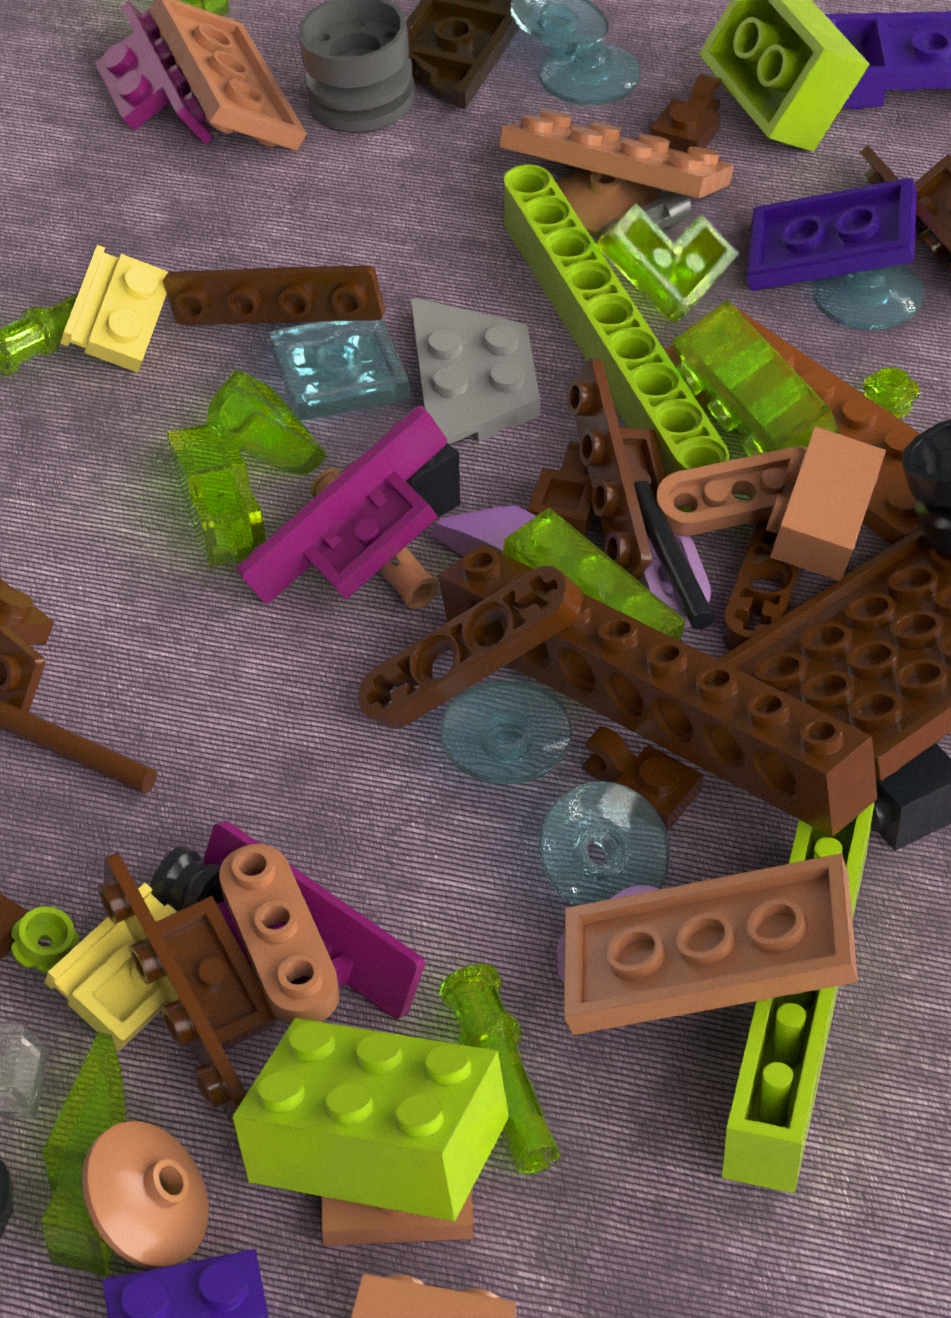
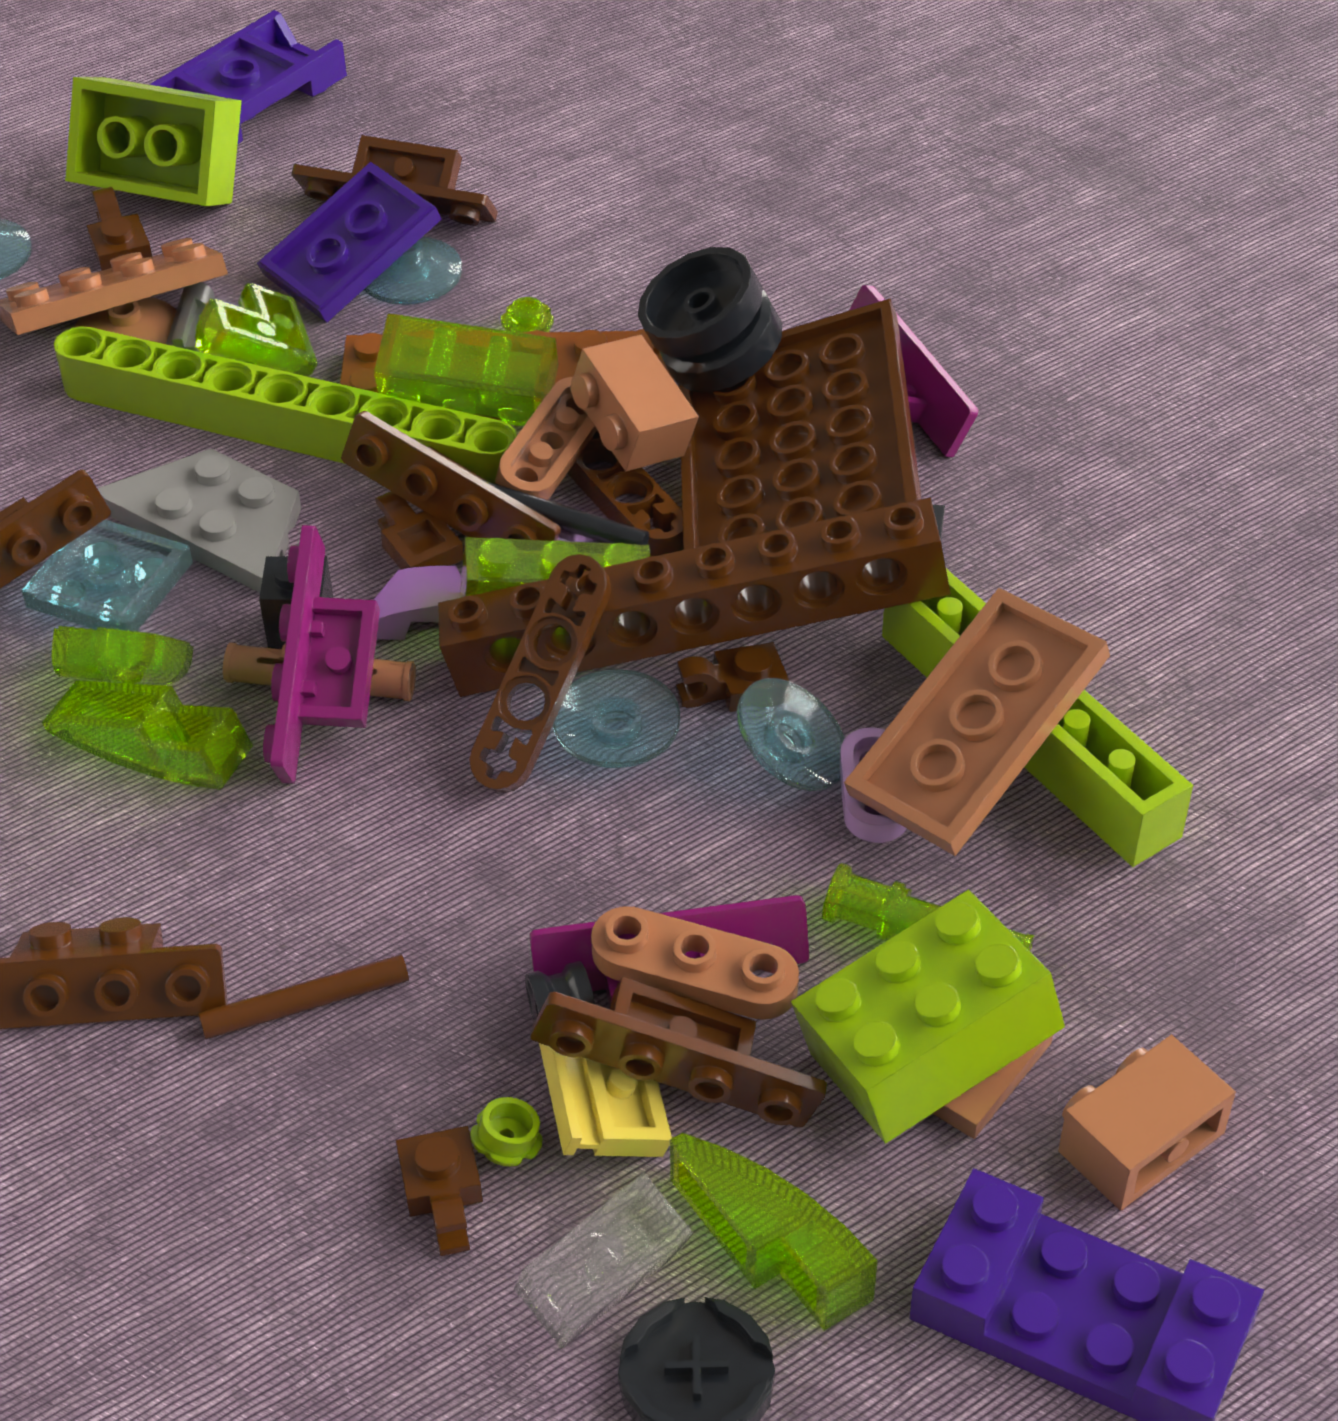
camera: 50 degrees left, 0 degrees up
(145, 1195) = (854, 1207): nougat dish -> none

